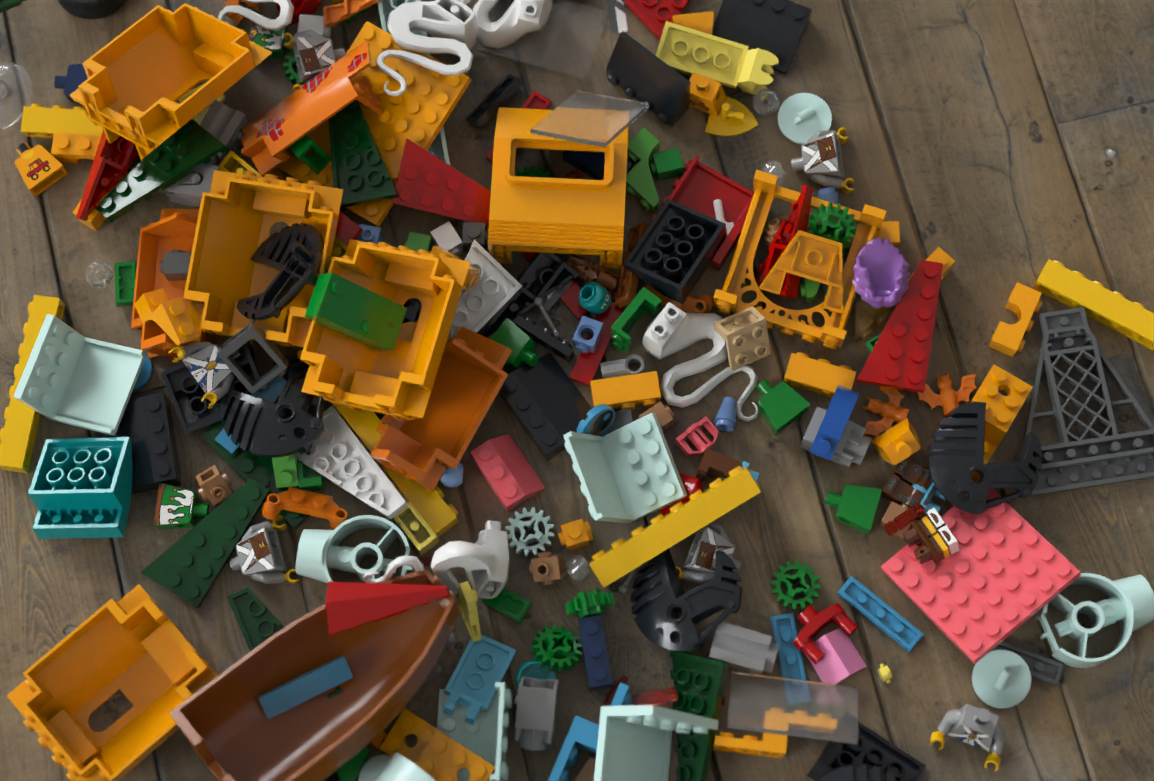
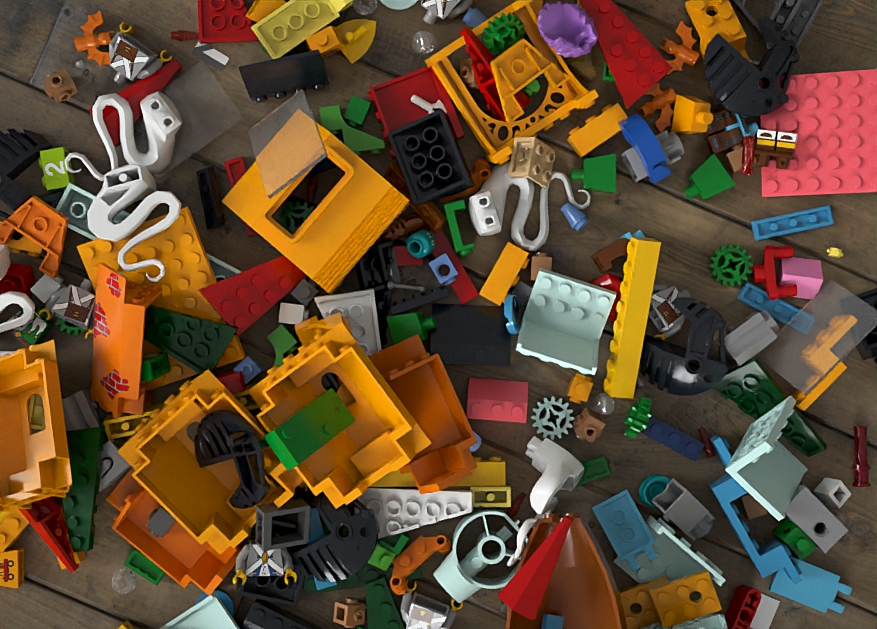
camera: 60 degrees left, 15 degrees up
(169, 315) = (206, 562): light orange arch -> none
(467, 602) = (575, 501): light yellow wing -> none
(558, 649) = (640, 464): green gear -> none
(621, 367) = (484, 265): light grey piece -> none
(655, 697) = (732, 420): clear red axle -> none
(697, 438) = (576, 249): coral piece -> none

